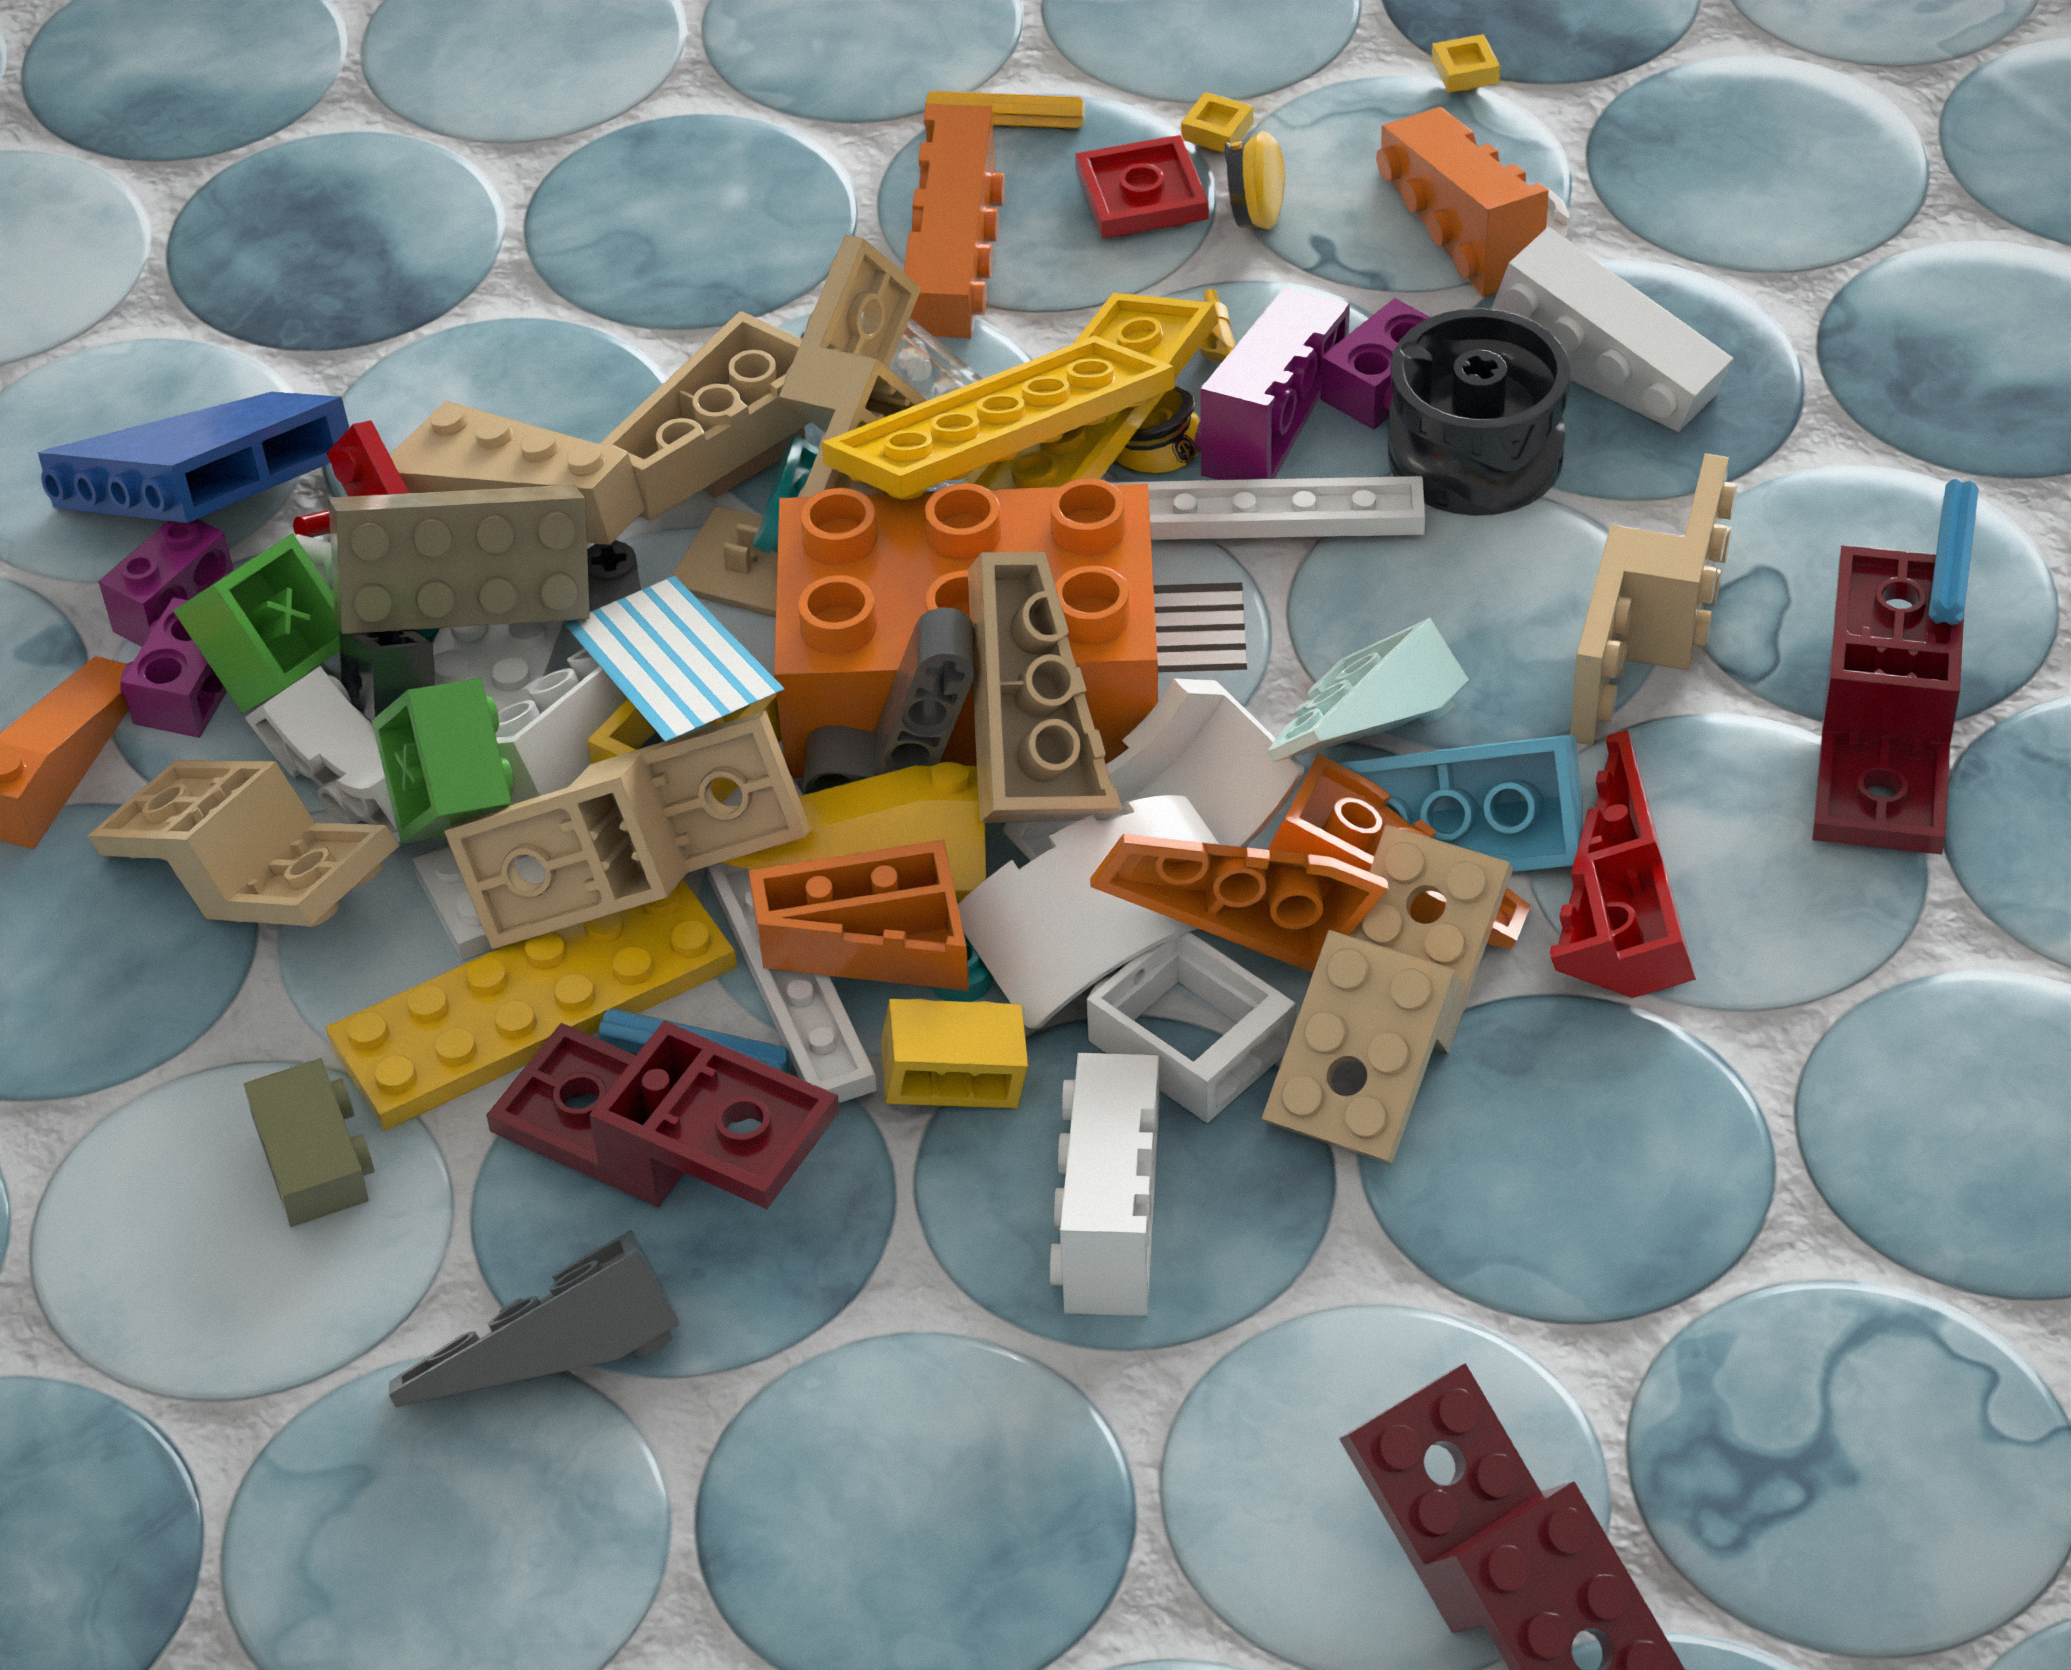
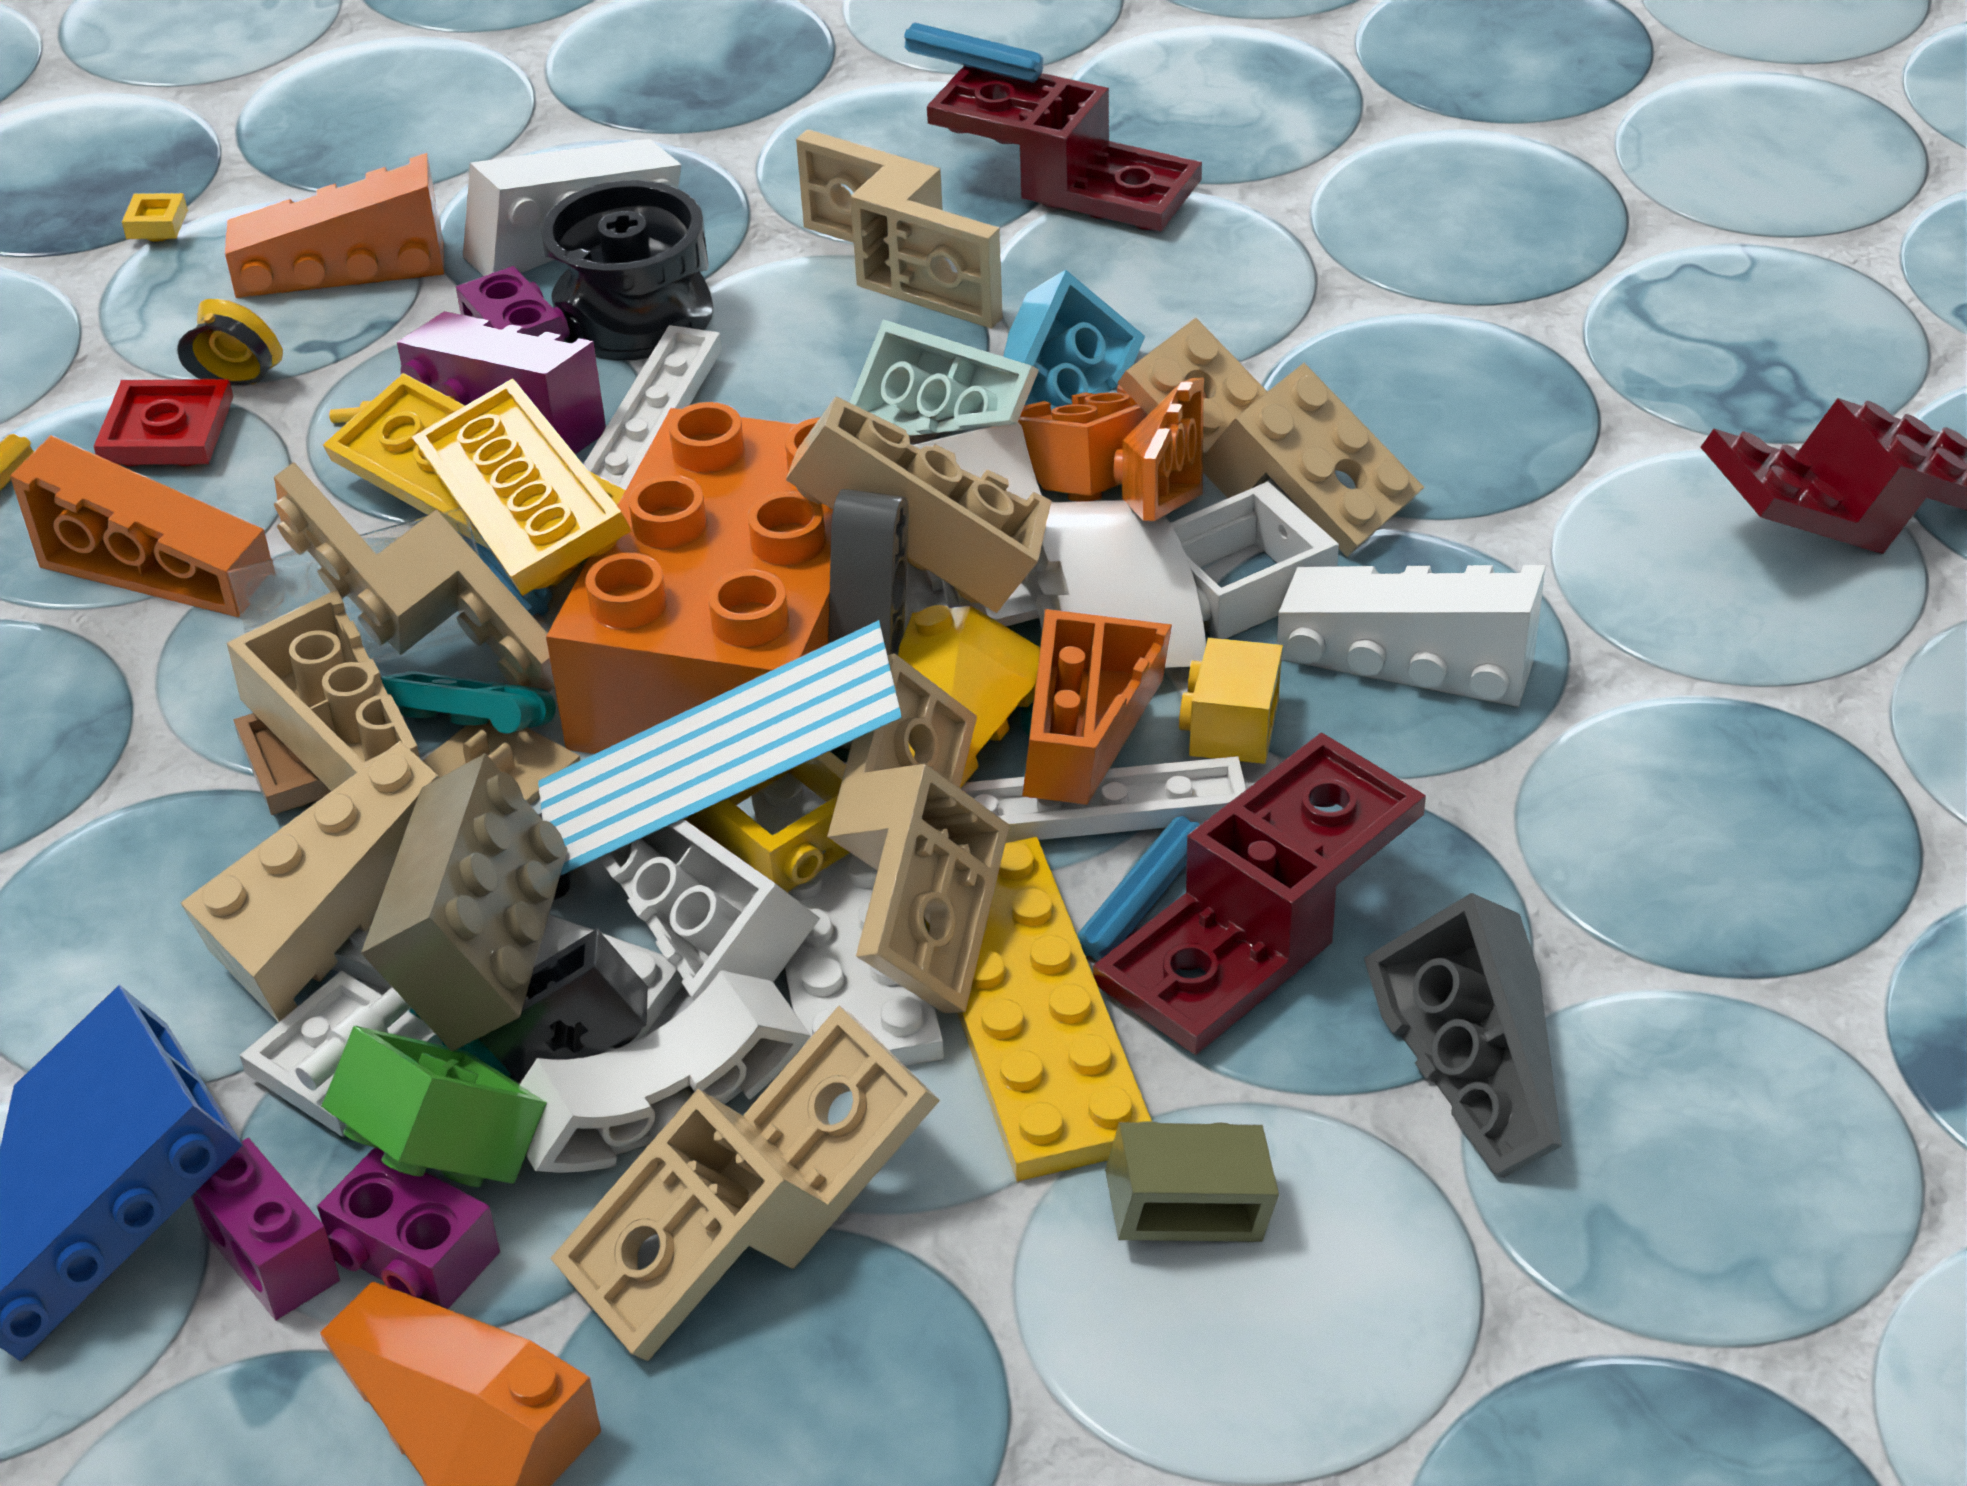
camera: 75 degrees left, 5 degrees down
(362, 469) = (280, 983): red plate -> none
(442, 757) = (785, 935): bright green brick -> none
(1216, 121) = (113, 361): yellow plate -> none
(1622, 909) = (1240, 315): red wedge -> none

